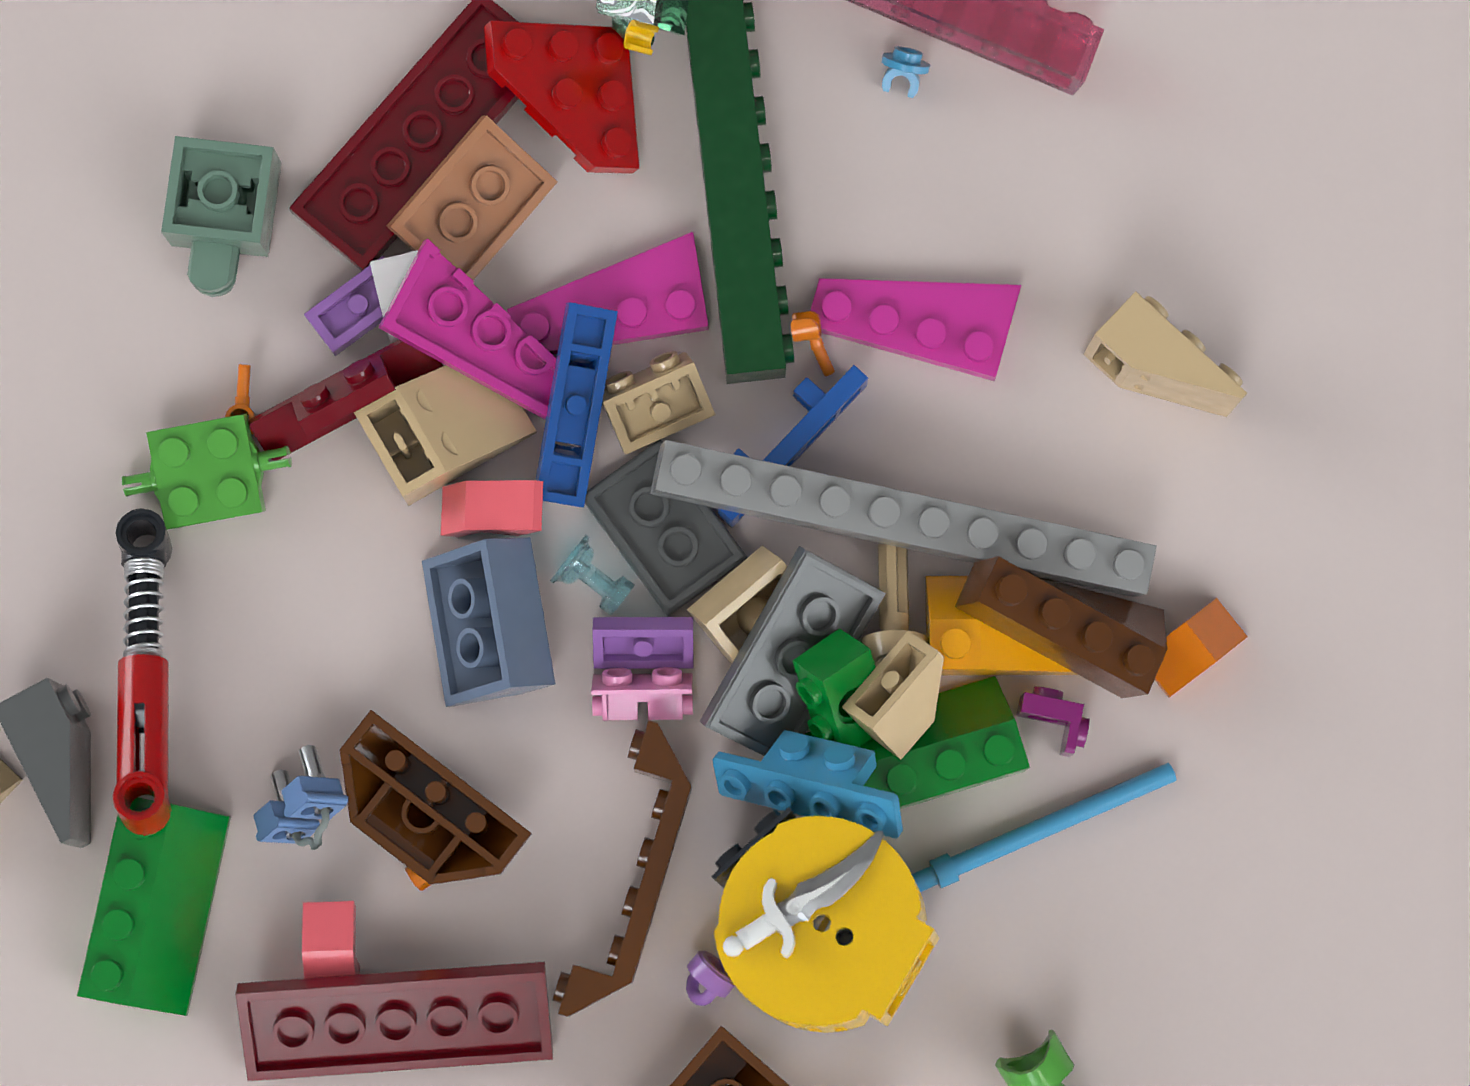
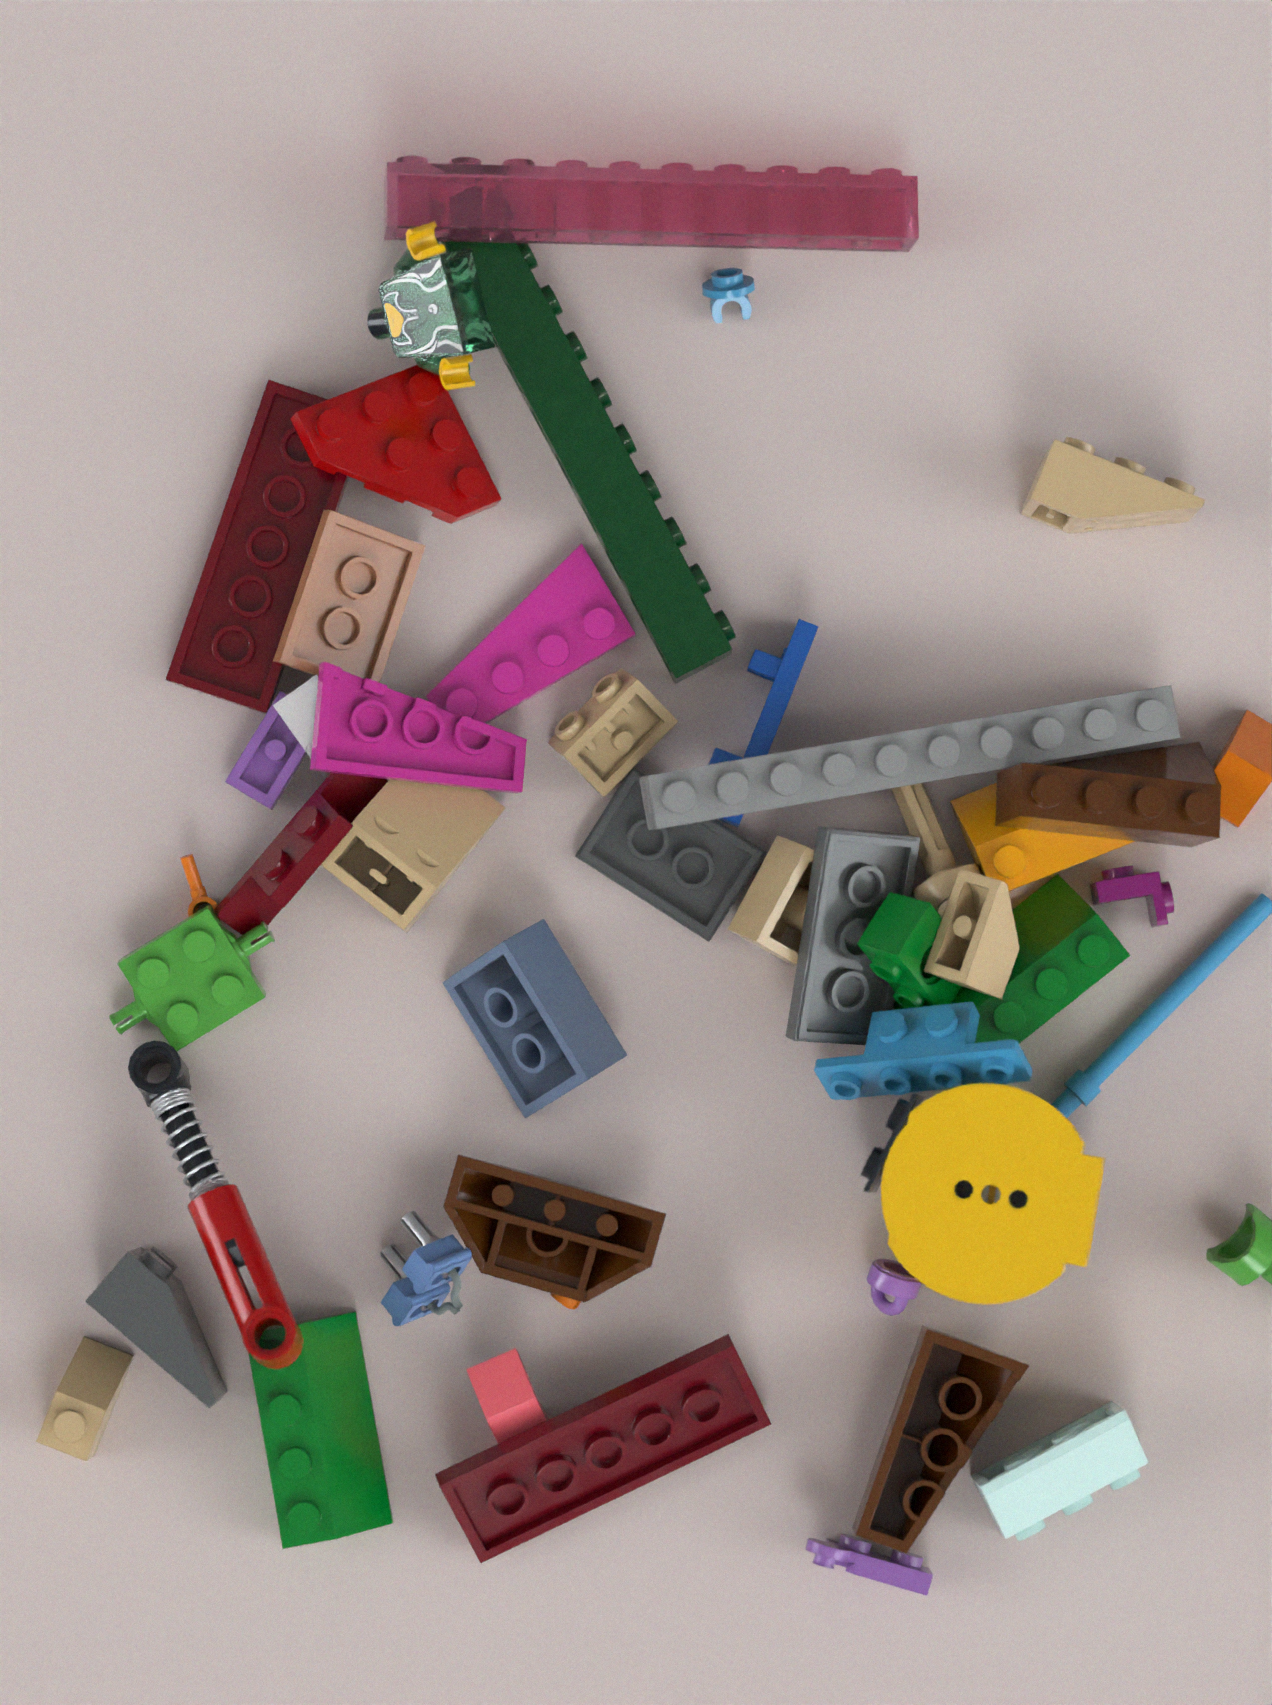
camera: 20 degrees left, 5 degrees up
(220, 207) = (97, 707): sand green brick -> none
(492, 507) = (493, 904): coral slope -> none
(575, 403) = (536, 769): blue hinge -> none
(579, 566) = (602, 927): clear light blue piece -> none
(624, 690) = (692, 1034): bright pink hinge -> none
(643, 642) = (697, 979): medium lavender plate -> none
(658, 761) = (780, 1338): reddish brown slope -> none
(804, 901) = (965, 1180): piece -> none
(807, 327) = (736, 597): orange hand -> none
(927, 321) = (851, 542): dark pink wing -> none

